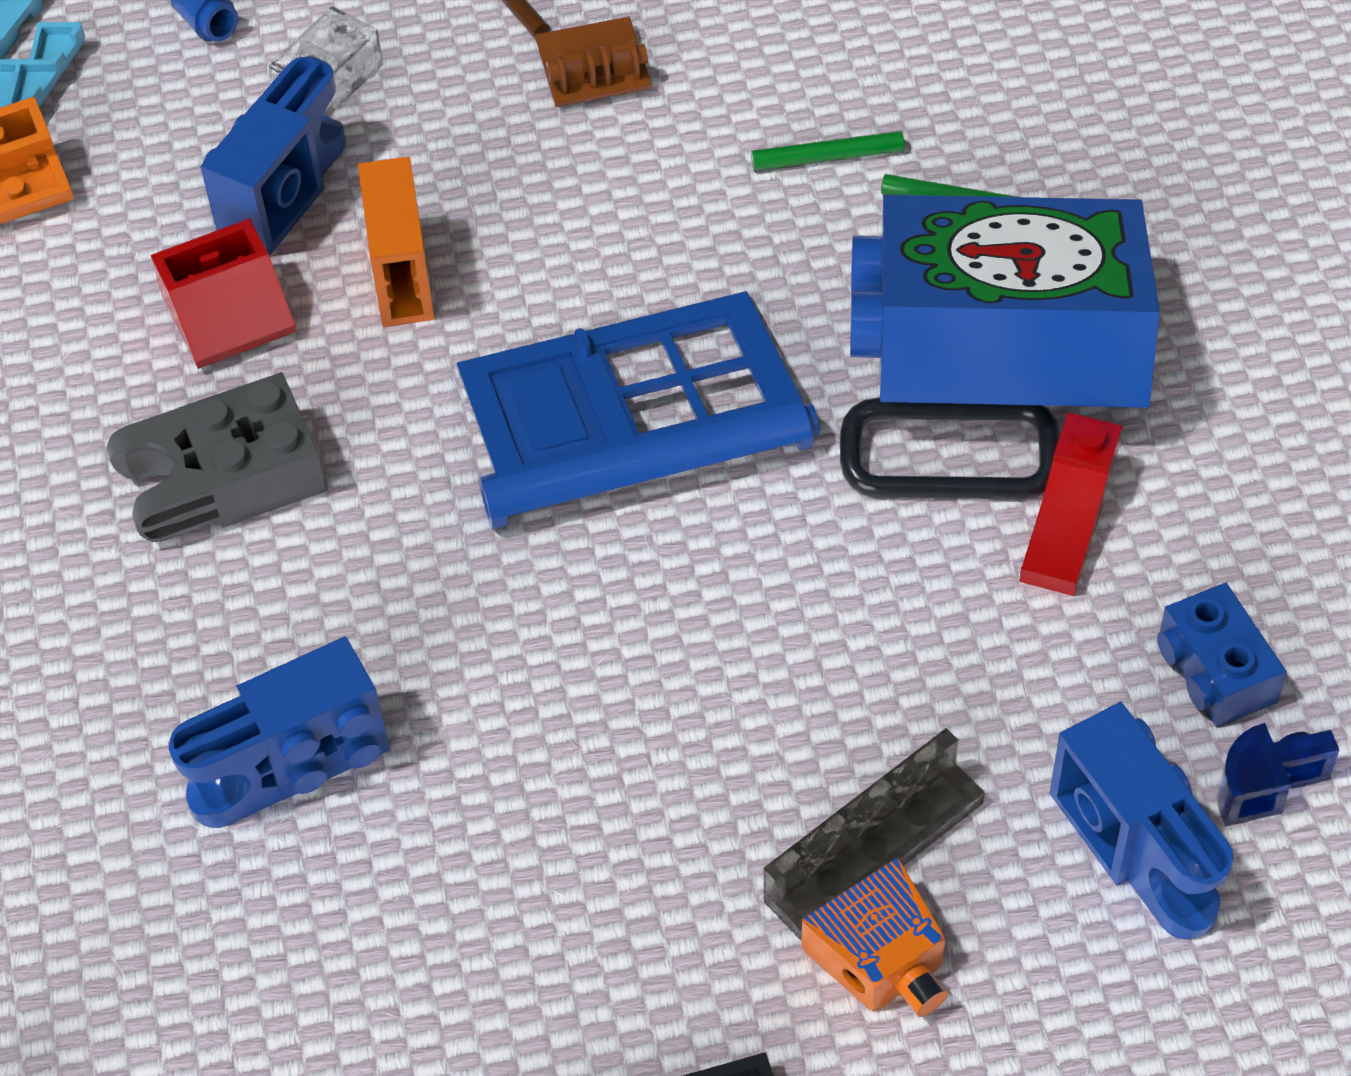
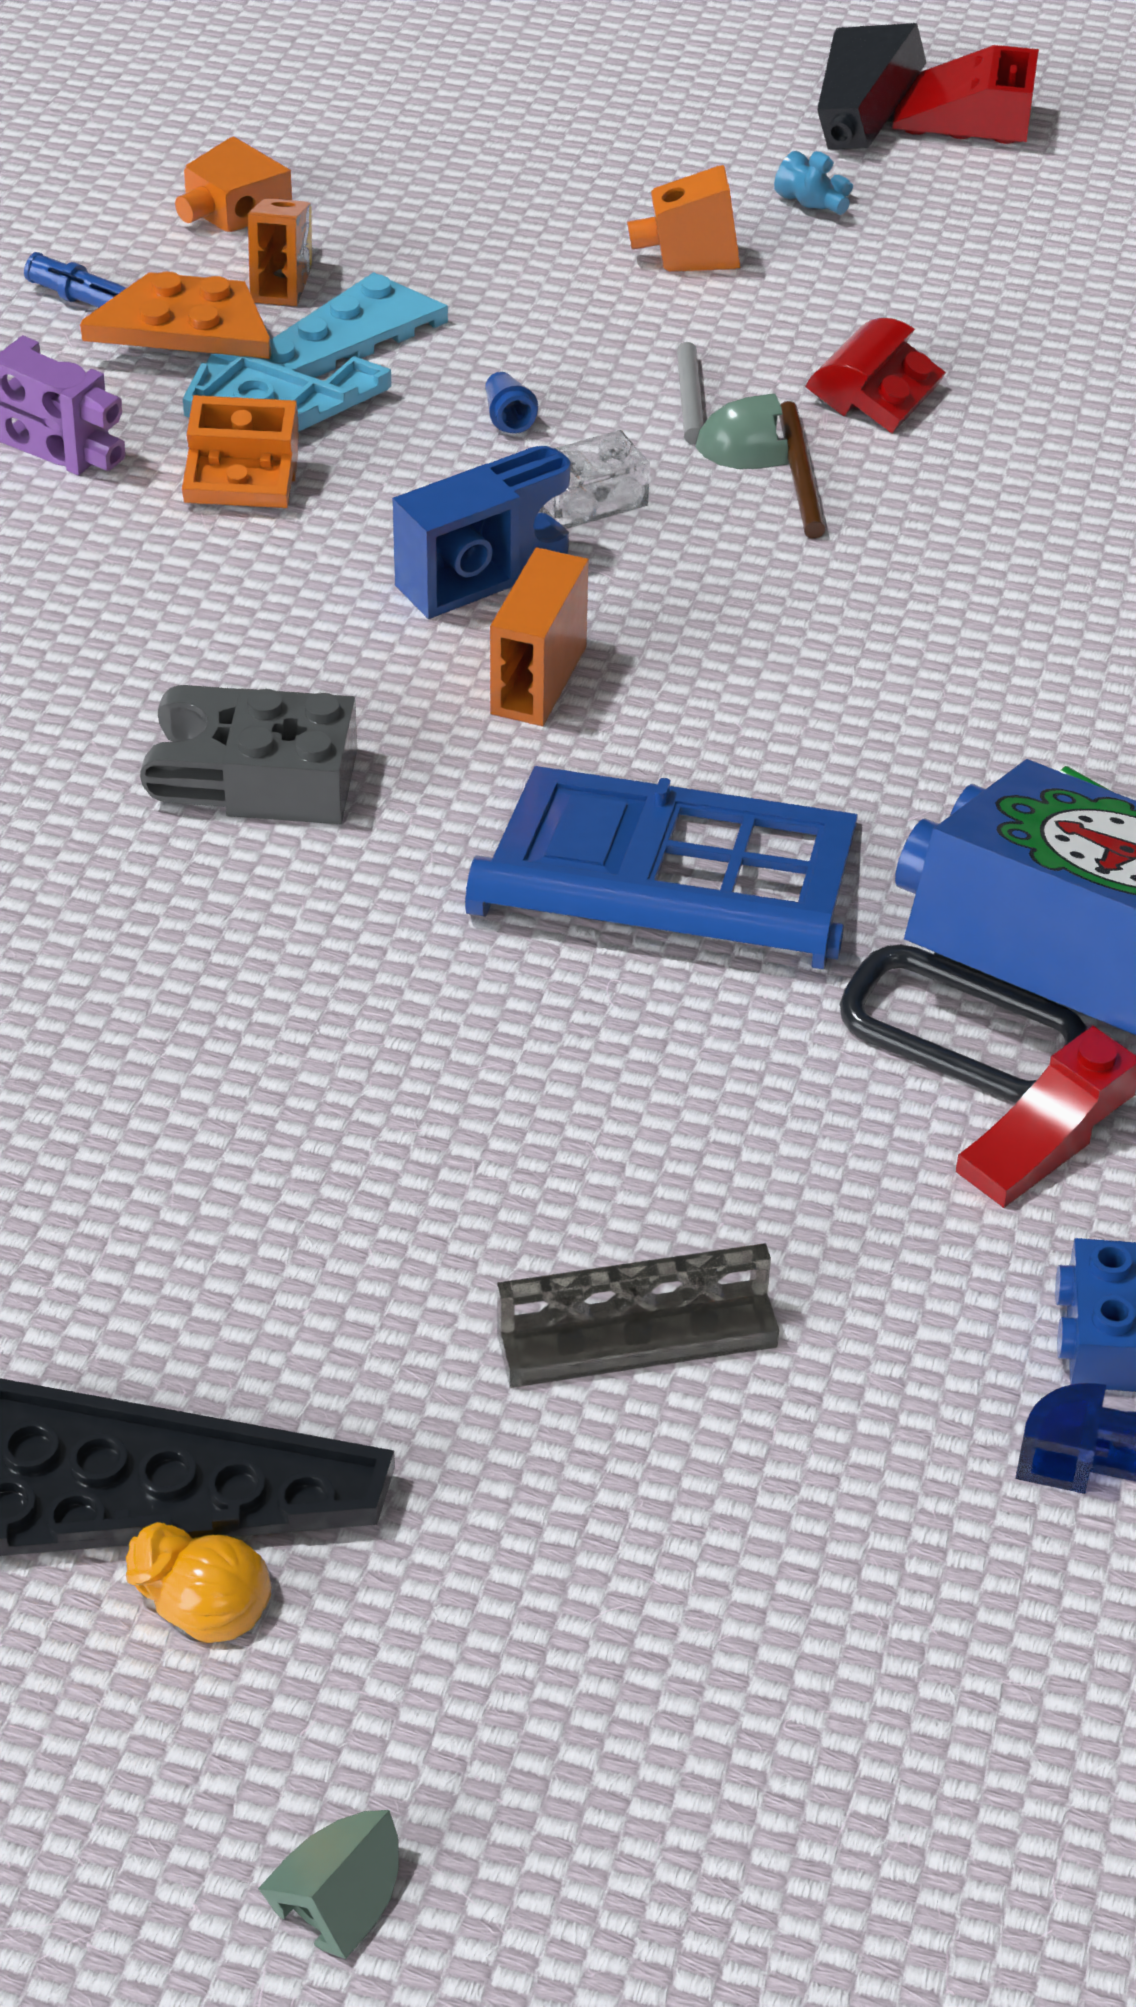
camera: 25 degrees right, 10 degrees down
(223, 293) = (355, 621): red slope -> none
(280, 735) = (137, 984): blue brick -> none
(593, 61) = (845, 570): dark orange hinge -> none
(827, 150) = (1025, 727): green bar -> none
(879, 941) = (575, 1408): orange torso -> none
(1141, 819) = (911, 1411): blue brick -> none

